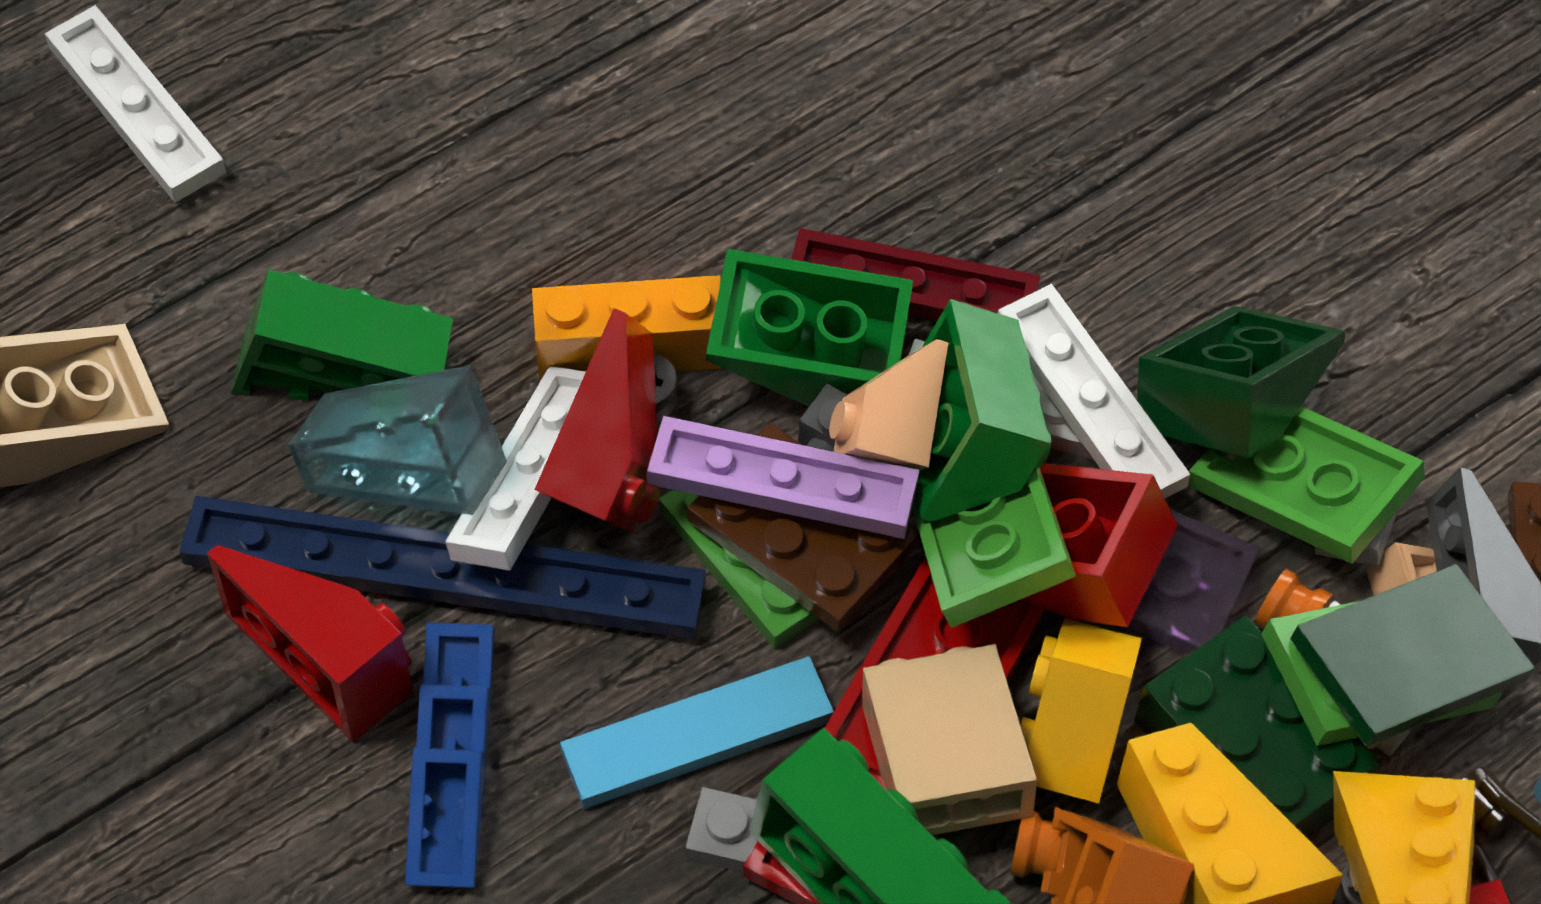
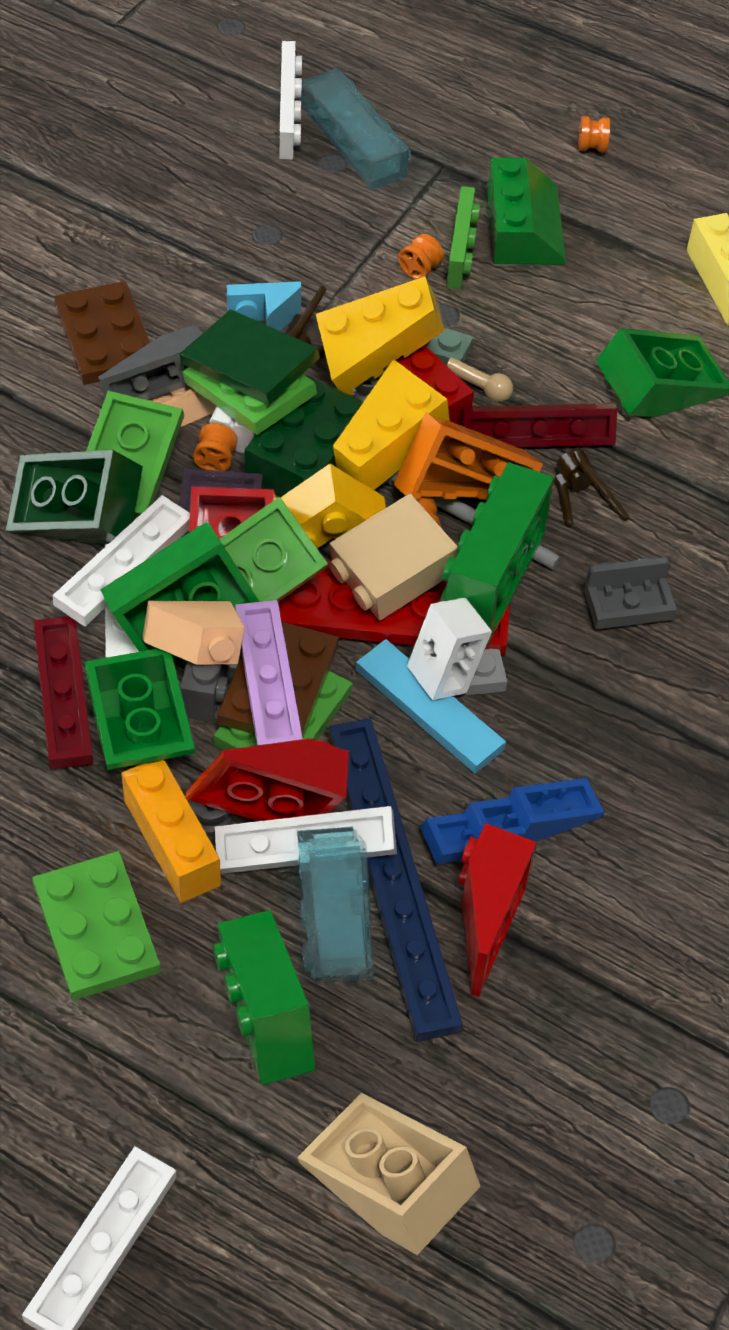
camera: 115 degrees left, 5 degrees down
(543, 223) = (96, 925): none -> bright green plate
(742, 740) = (449, 648): none -> white brick

